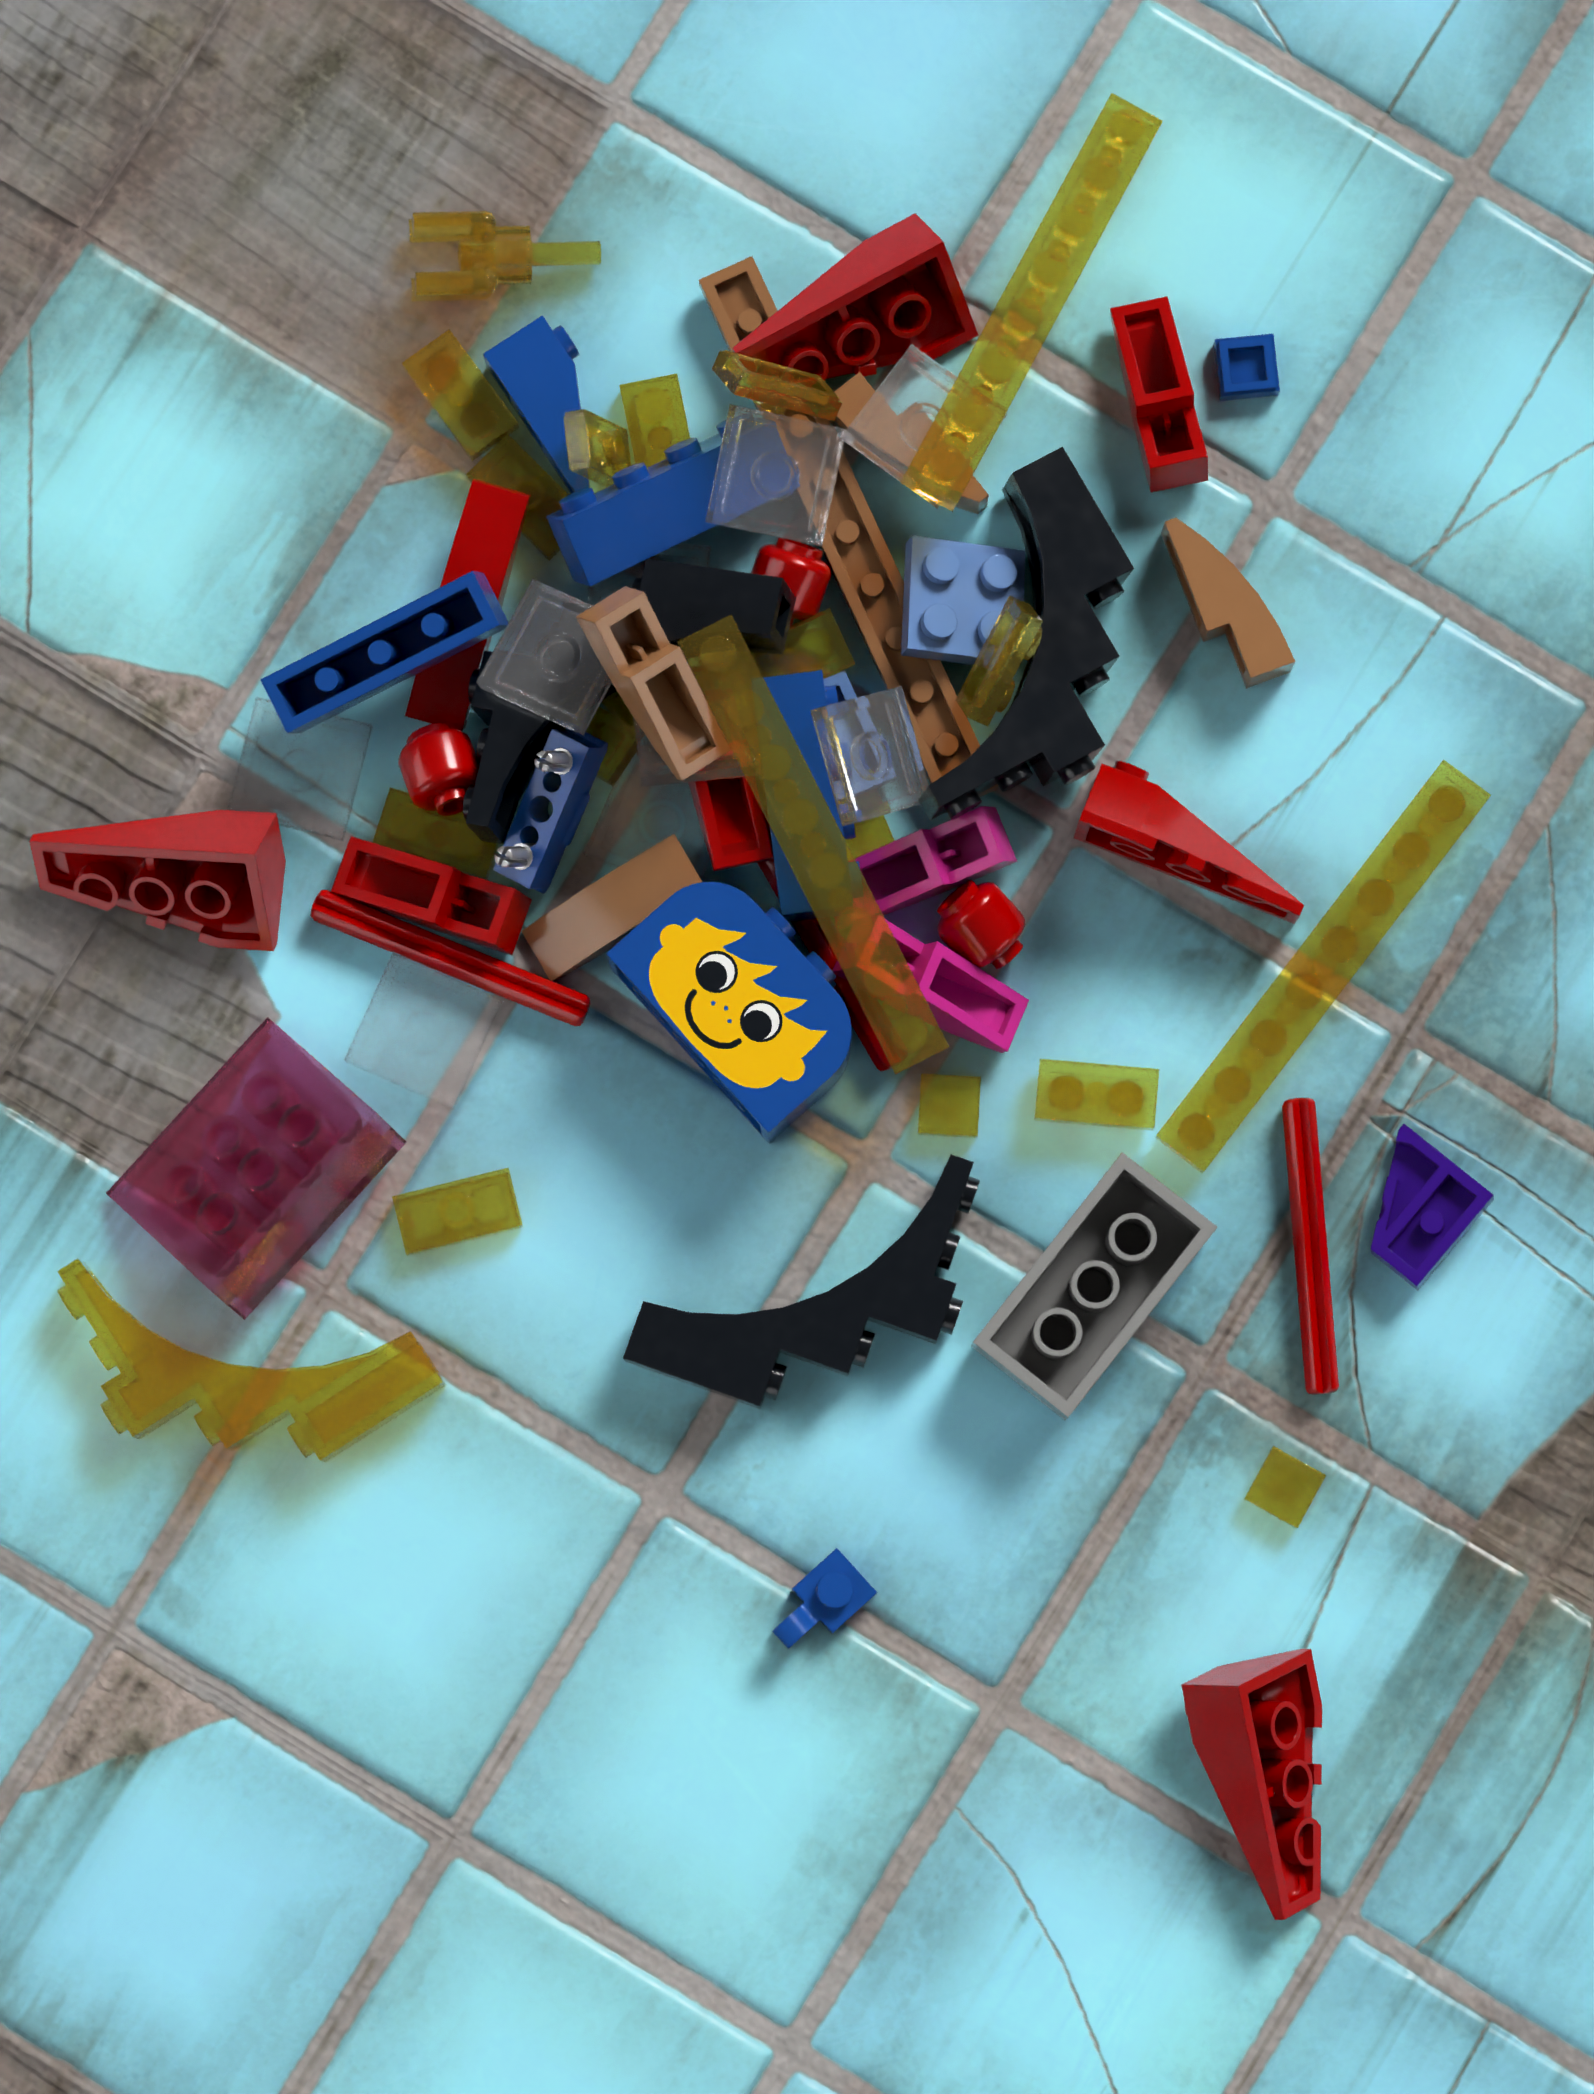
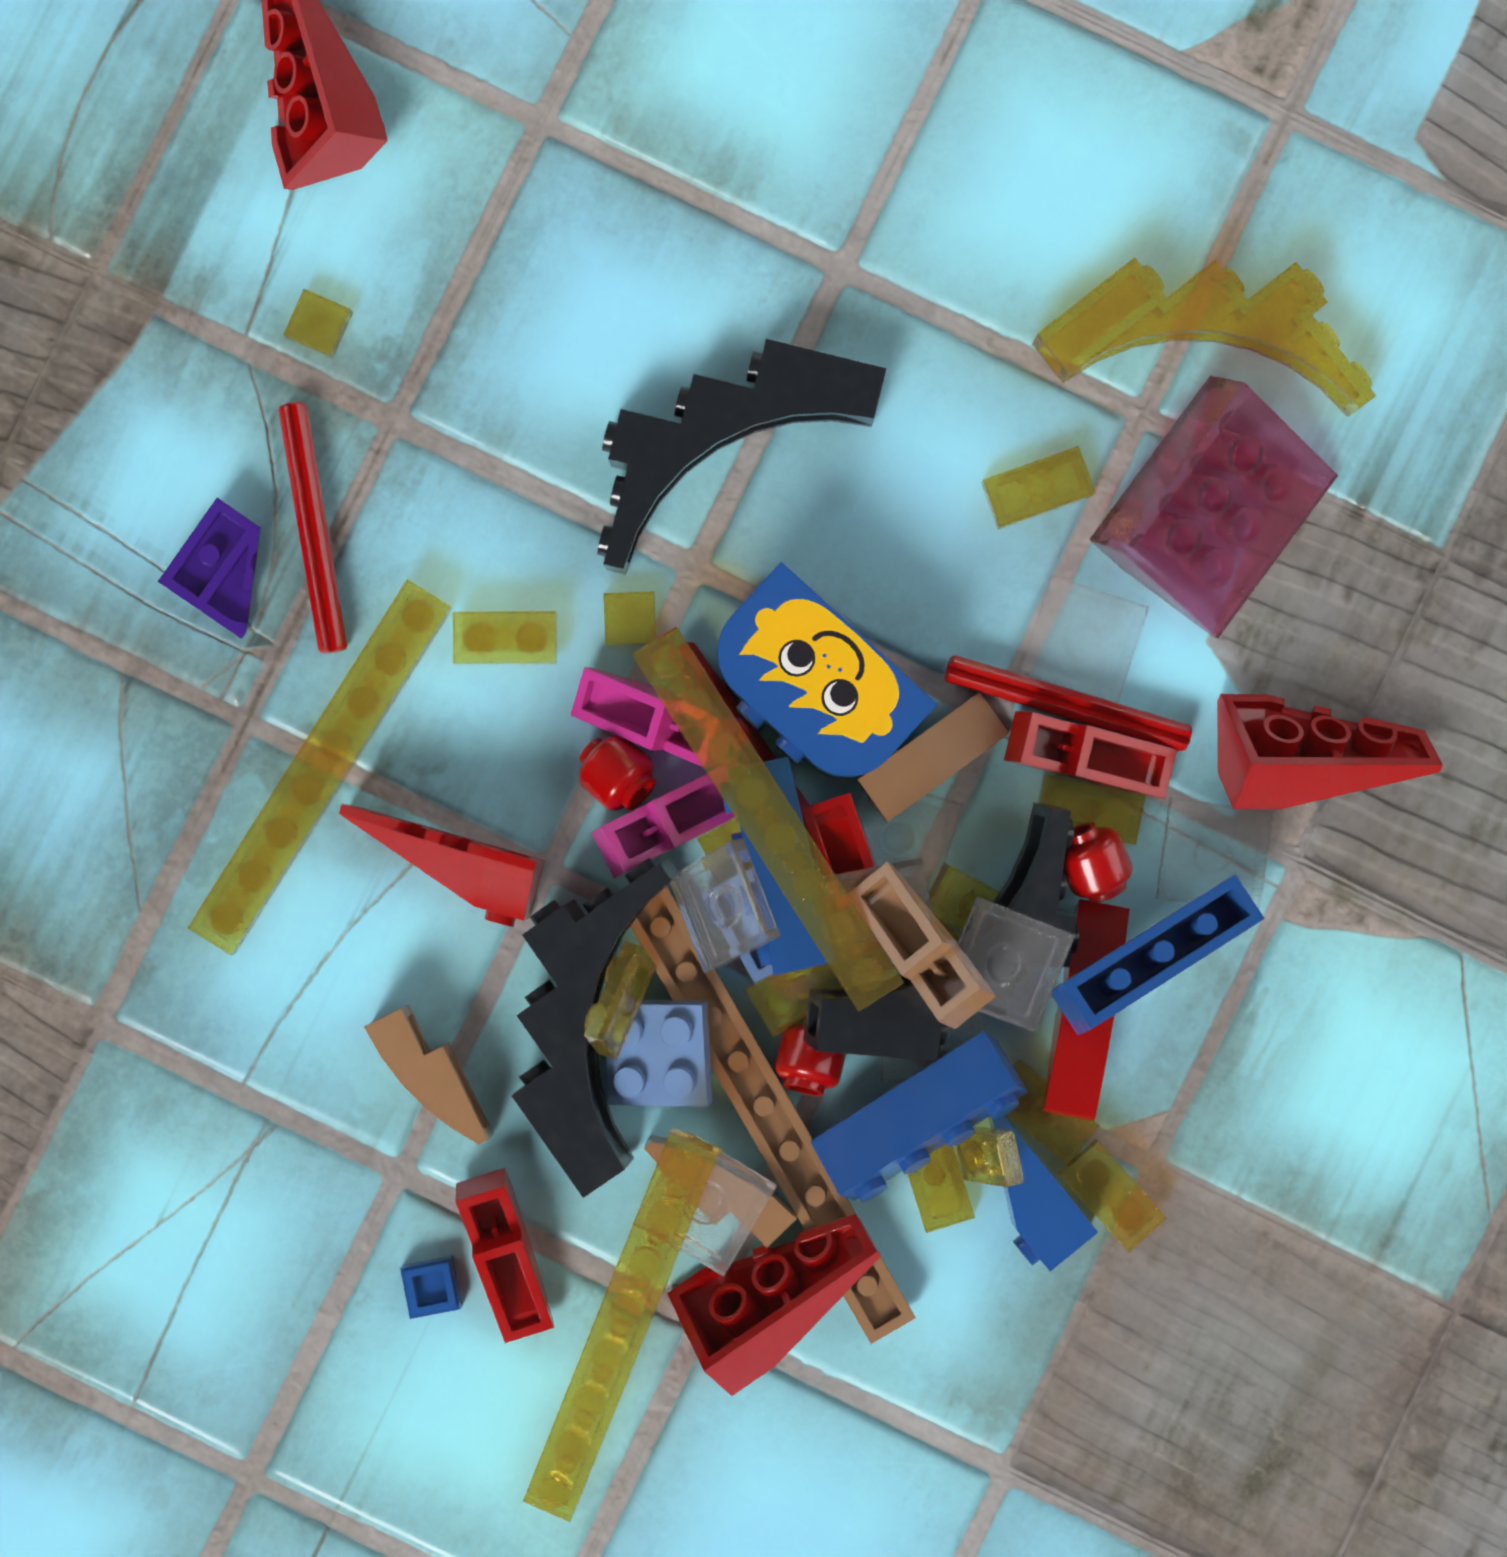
camera: 170 degrees right, 5 degrees up
(487, 255) = (1101, 1322): clear yellow plant -> none
(564, 779) = (1003, 811): blue piece -> none
(775, 475) = (831, 1146): clear tile -> none
(776, 386) = (838, 1225): clear yellow plate -> none
(828, 1595) = (692, 195): blue plate -> none
(1093, 1286) = (491, 468): light grey brick -> none

